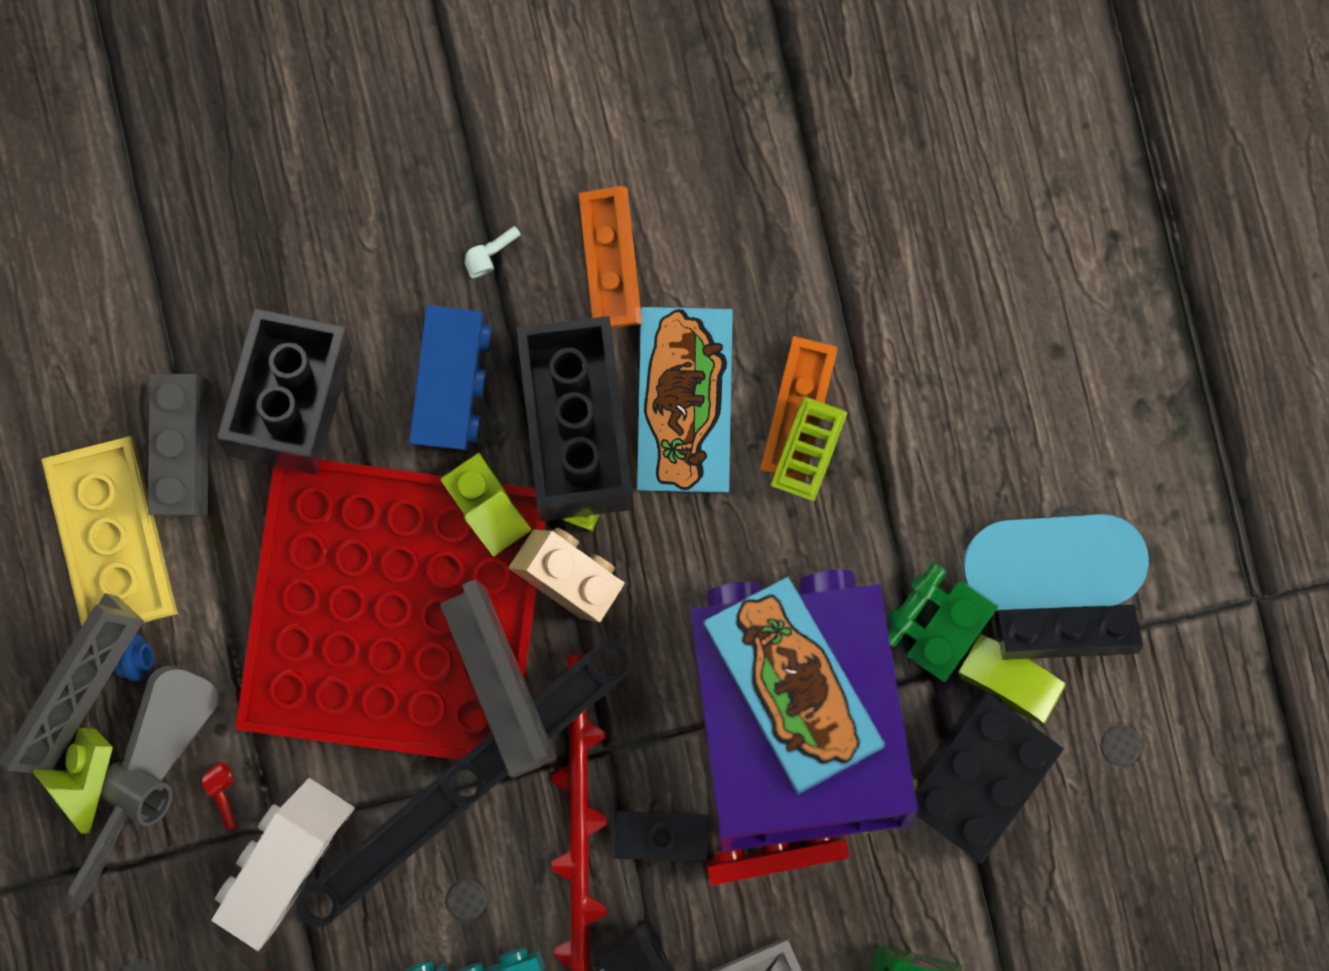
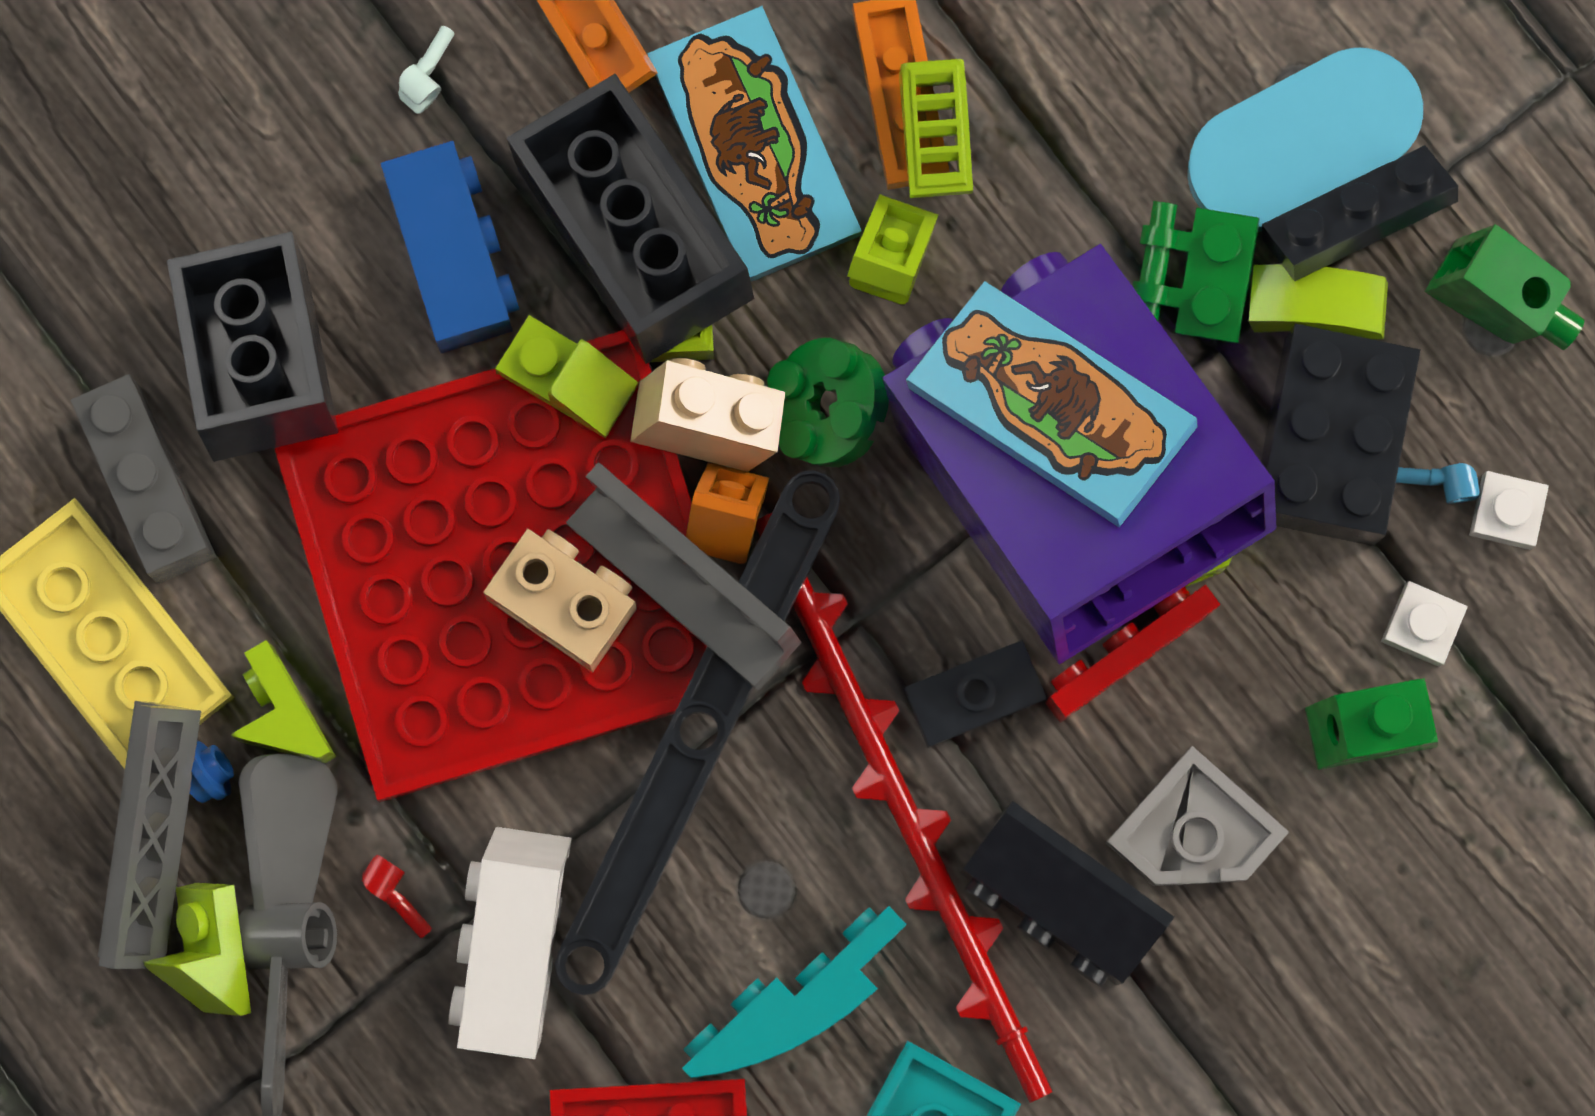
camera: 30 degrees left, 5 degrees down
(205, 653) = (289, 726): none -> lime slope
(412, 654) = (562, 598): none -> tan brick
(551, 641) = (726, 512): none -> orange slope
(670, 615) = (860, 402): none -> green plate
(743, 514) = (891, 250): none -> lime slope
(982, 925) = (1424, 624): none -> white plate
(1049, 841) = (1458, 480): none -> dark azure hand
(1074, 875) = (1509, 510): none -> white plate
(1141, 730) = (1505, 289): none -> green torso

